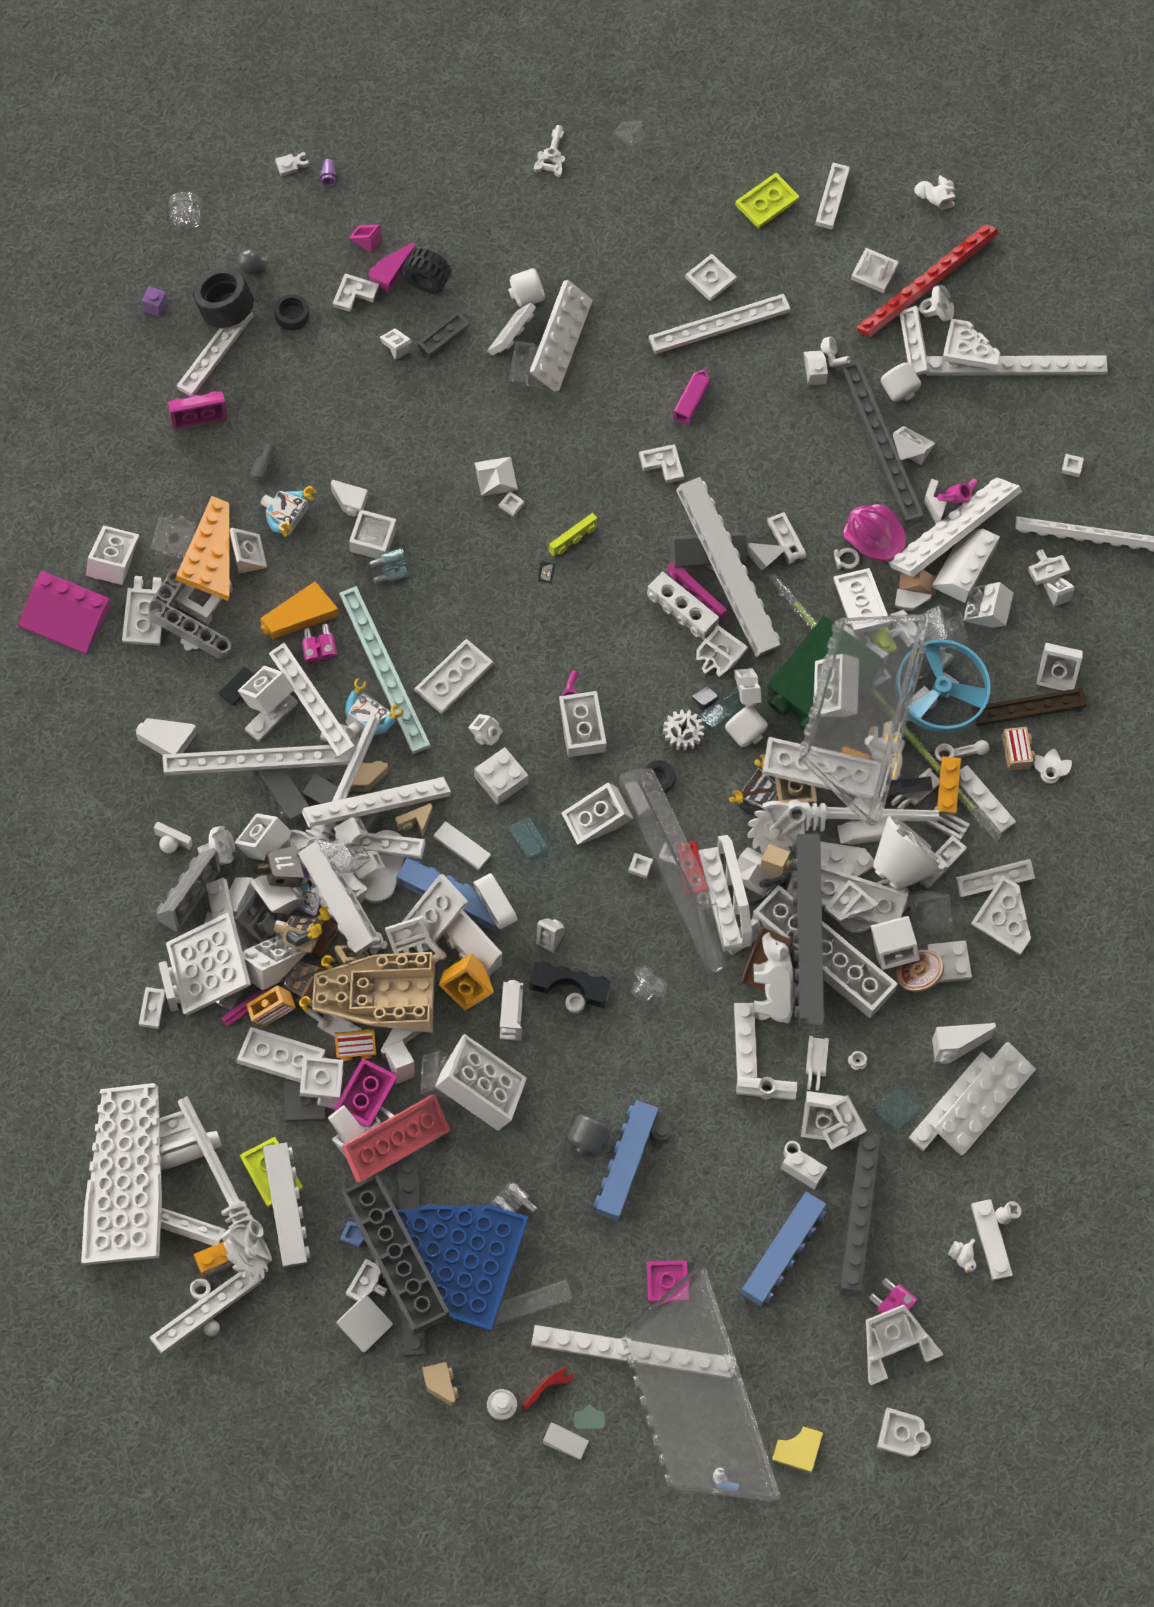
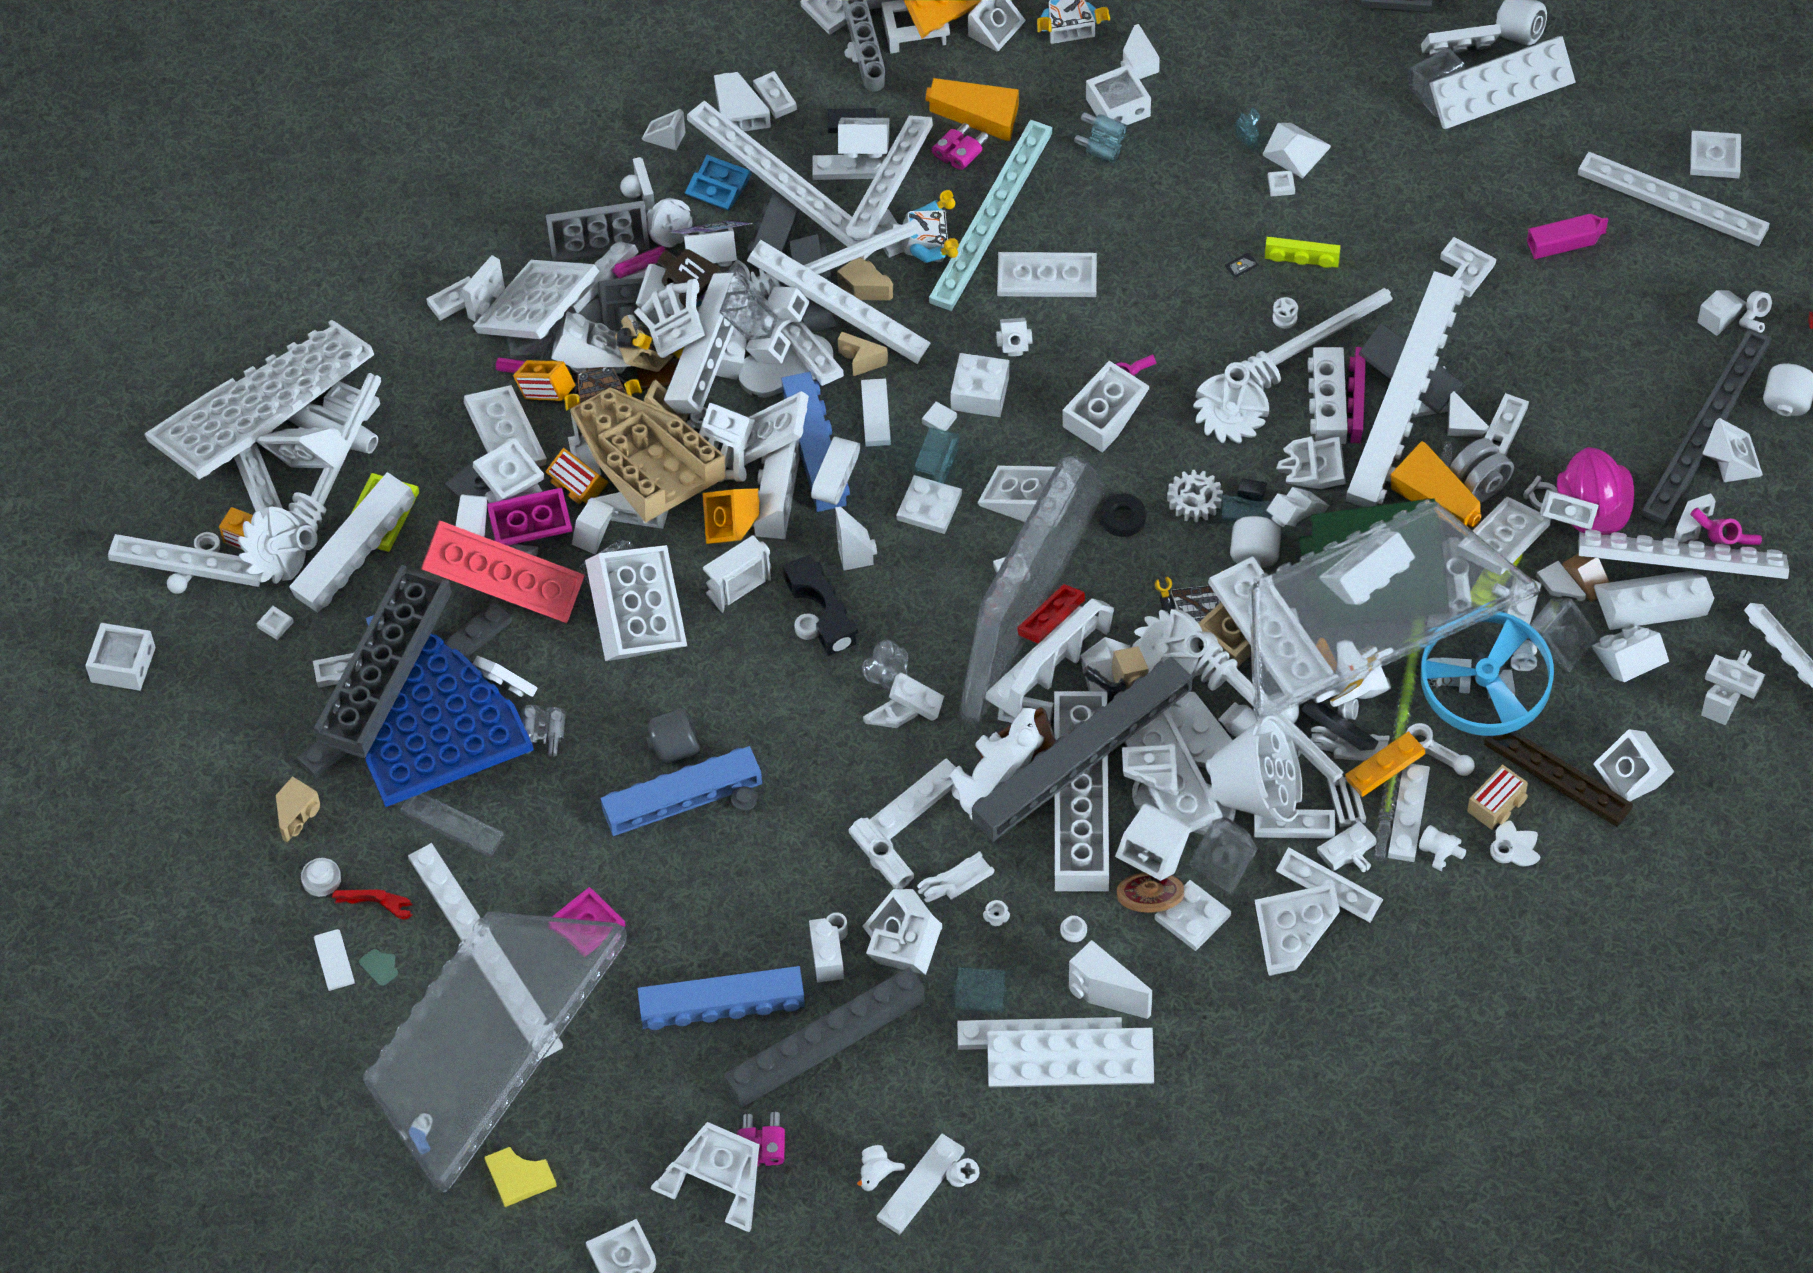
camera: 55 degrees right, 10 degrees down
(144, 792) = (666, 130): none -> white slope
(178, 711) = (774, 95): none -> white plate
(193, 1176) = (306, 446): none -> white slope
(211, 795) = (718, 183): none -> dark azure slope
(234, 884) = (638, 262): none -> dark pink axle
(239, 1401) = (120, 656): none -> white piece
(249, 824) = (710, 227): none -> sticker
(292, 1293) = (275, 622): none -> white tile
(319, 906) = (679, 329): none -> white plate
(364, 1323) = (296, 699): white tile -> none
(460, 1196) = (498, 674): none -> white plate
(462, 489) = (1247, 130): none -> clear light blue plate
(499, 816) = (939, 417): none -> white tile
(553, 870) = (929, 504): none -> white plate
(602, 575) = (1286, 306): none -> white wheel
(642, 658) = (1235, 406): none -> white piece
(676, 1005) = (890, 715): none -> white tile
(682, 985) = (916, 696): none -> white plate
(802, 607) = (1427, 477): none -> light orange slope
(811, 575) = (1482, 469): none -> light grey wheel
(875, 555) = (1568, 509): none -> white slope
(903, 1029) = (1073, 929): none -> white plate
(979, 848) = (1348, 848): none -> white plate
(1022, 801) = (1441, 845): none -> white piece

